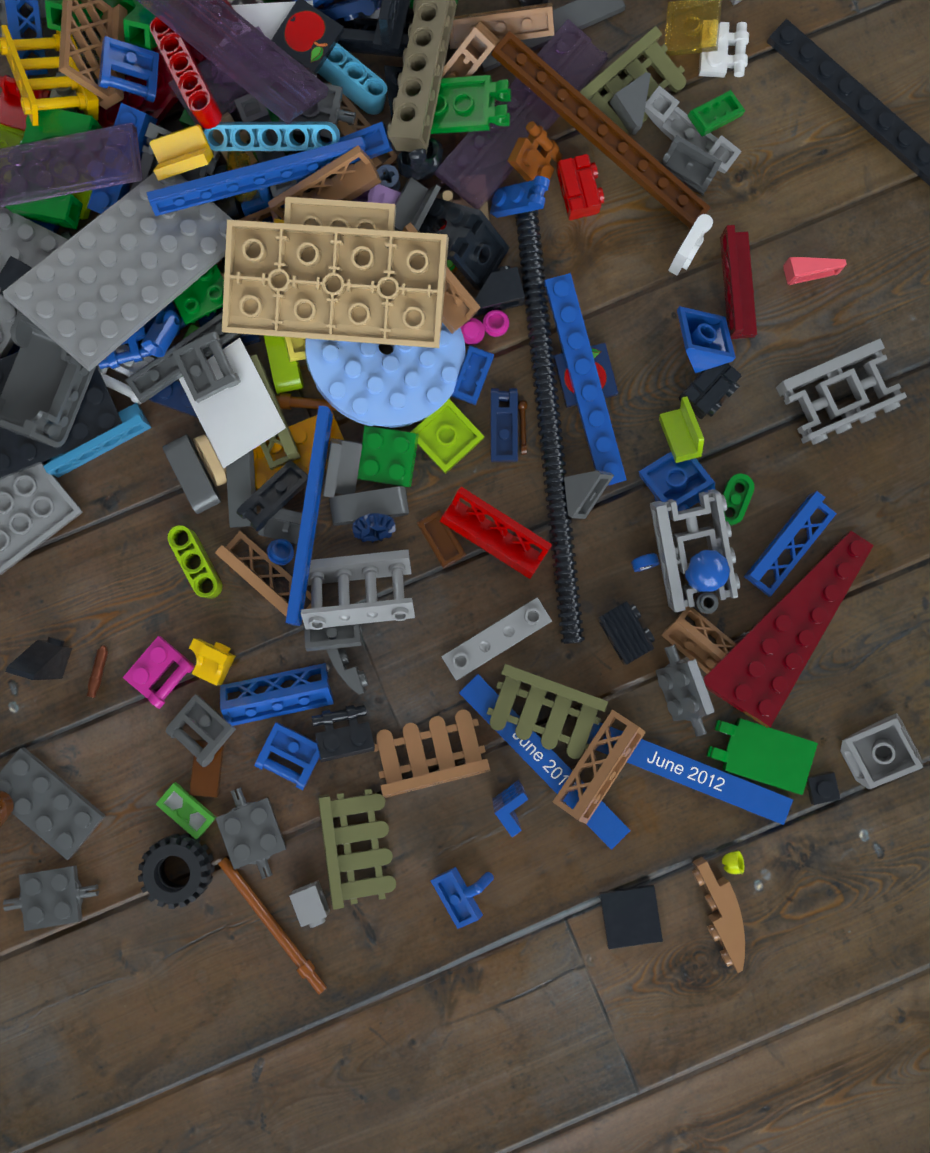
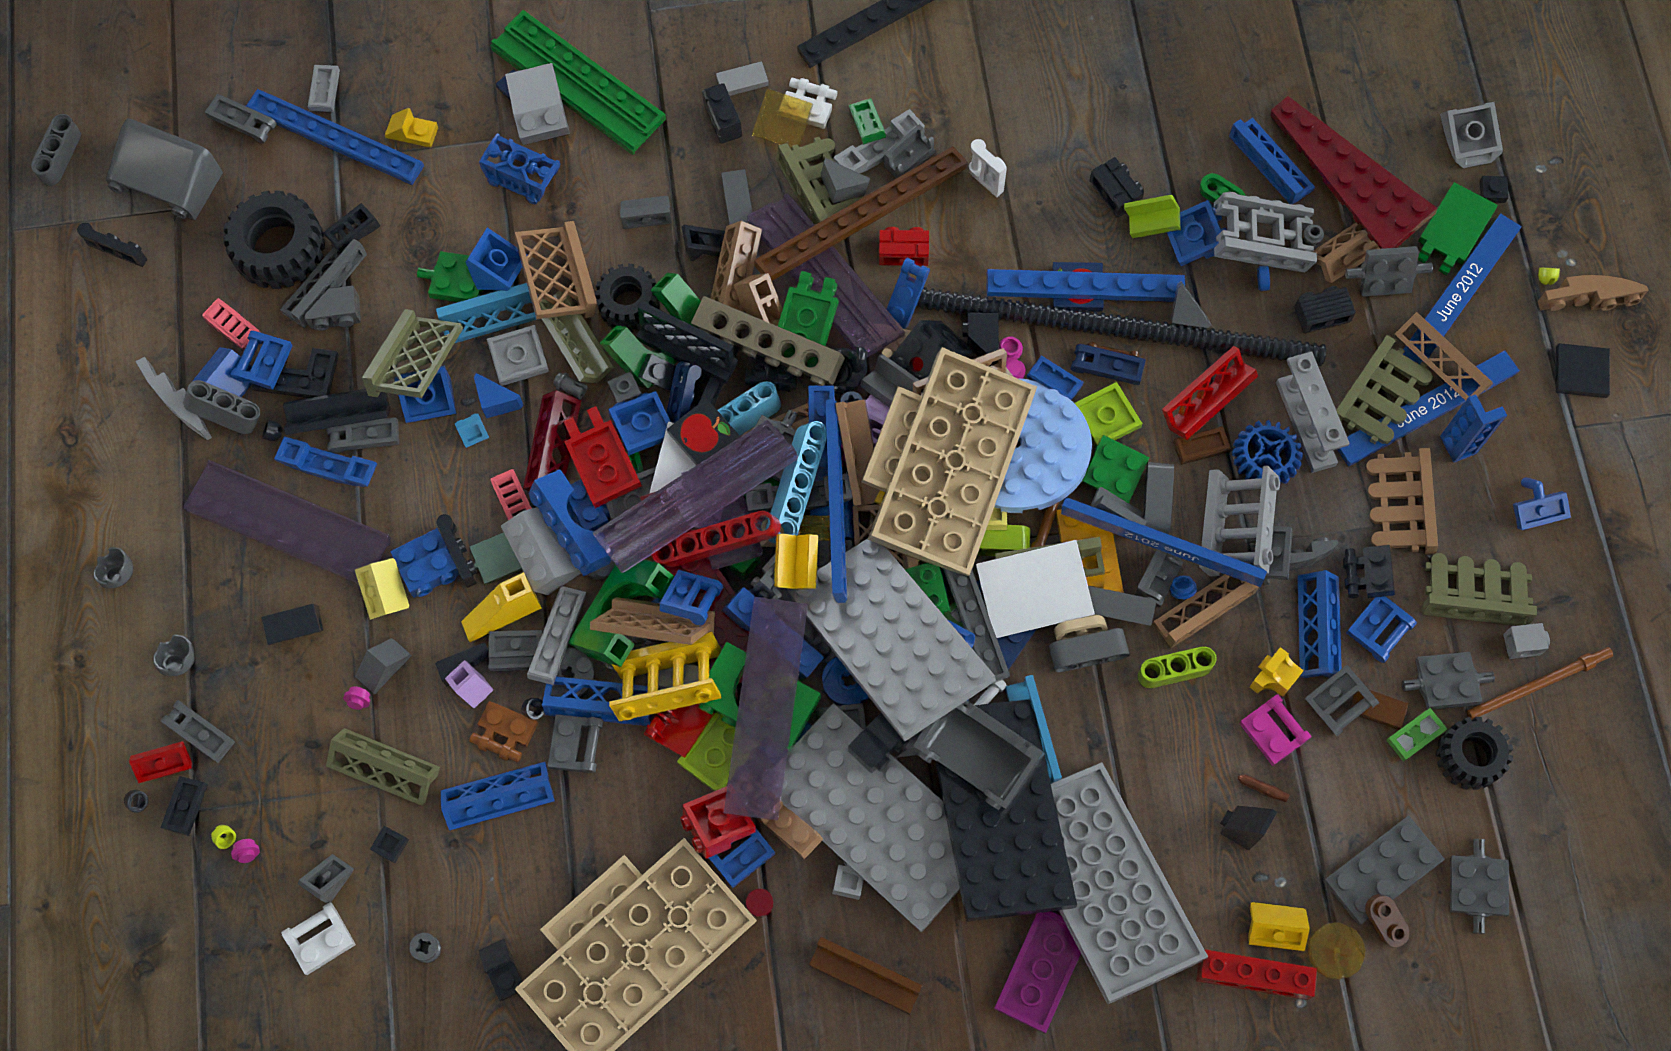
camera: 75 degrees left, 15 degrees down
(198, 371) = (1002, 606): dark grey plate -> none
(273, 495) = (1133, 570): black plate -> none
(373, 527) = (1181, 496): dark blue gear -> none
(461, 588) = (1258, 437): none -> blue gear
(526, 157) = (870, 276): dark orange plate -> none
(705, 339) = (1076, 176): blue slope -> none
(707, 571) = (1288, 223): blue hair -> none
(738, 283) = (1028, 143): dark red fence -> none
(807, 269) = (1029, 87): coral slope -> none
(832, 374) = (1127, 87): light grey fence -> none

